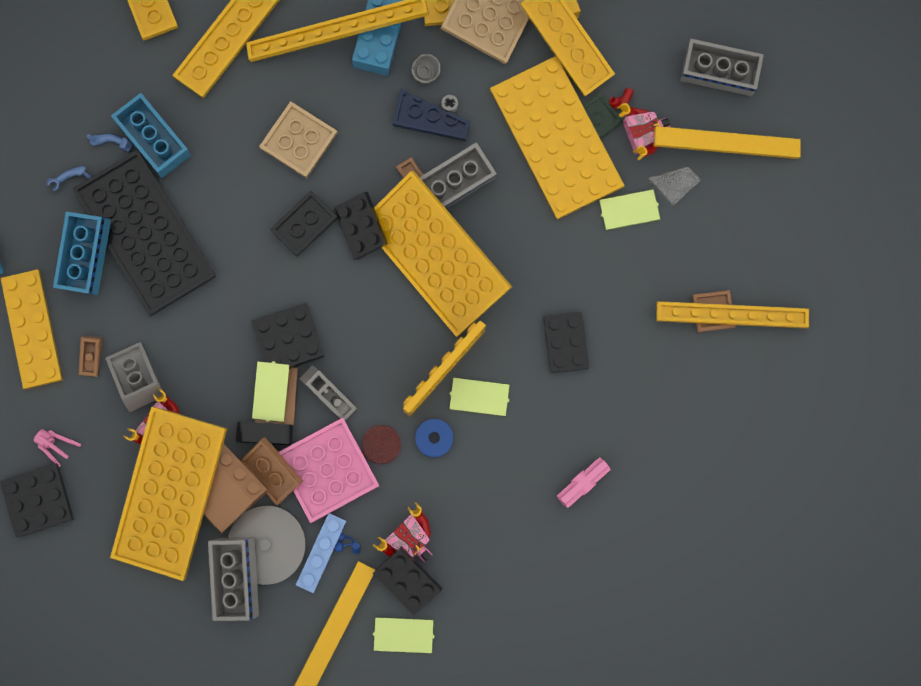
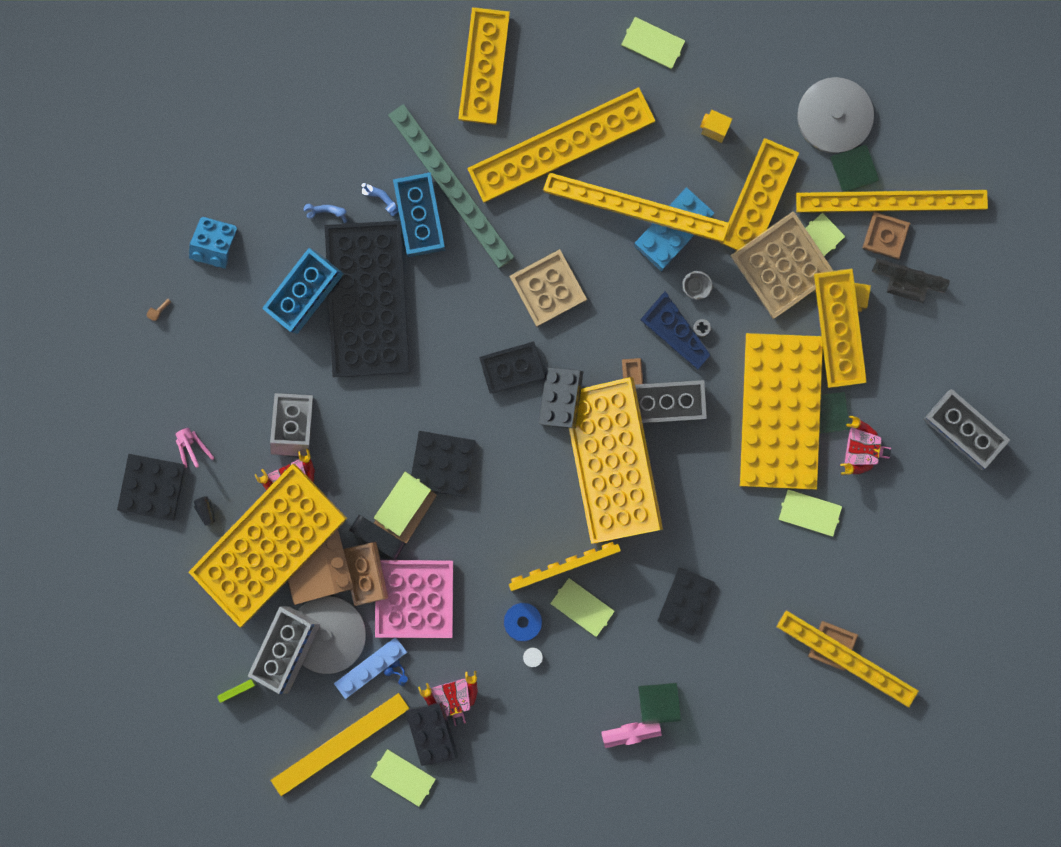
camera: 35 degrees right, 5 degrees up
(31, 329) = (224, 332): yellow plate -> none
(90, 355) = (262, 383): medium nougat slope -> none
(96, 494) = (204, 509): none -> black cone
(167, 99) = (451, 186): none -> sand green plate
(210, 640) = (236, 690): none -> lime tile
(327, 393) = (451, 531): light grey slope -> none
(381, 444) = (473, 602): clear red tile -> none
(460, 464) = (532, 657): none -> white tile
(593, 442) = (659, 703): none -> clear green tile
(626, 97) = (859, 410): red arm -> none
(675, 184) = (864, 512): clear wing -> none
(727, 142) = (932, 501): yellow tile -> none

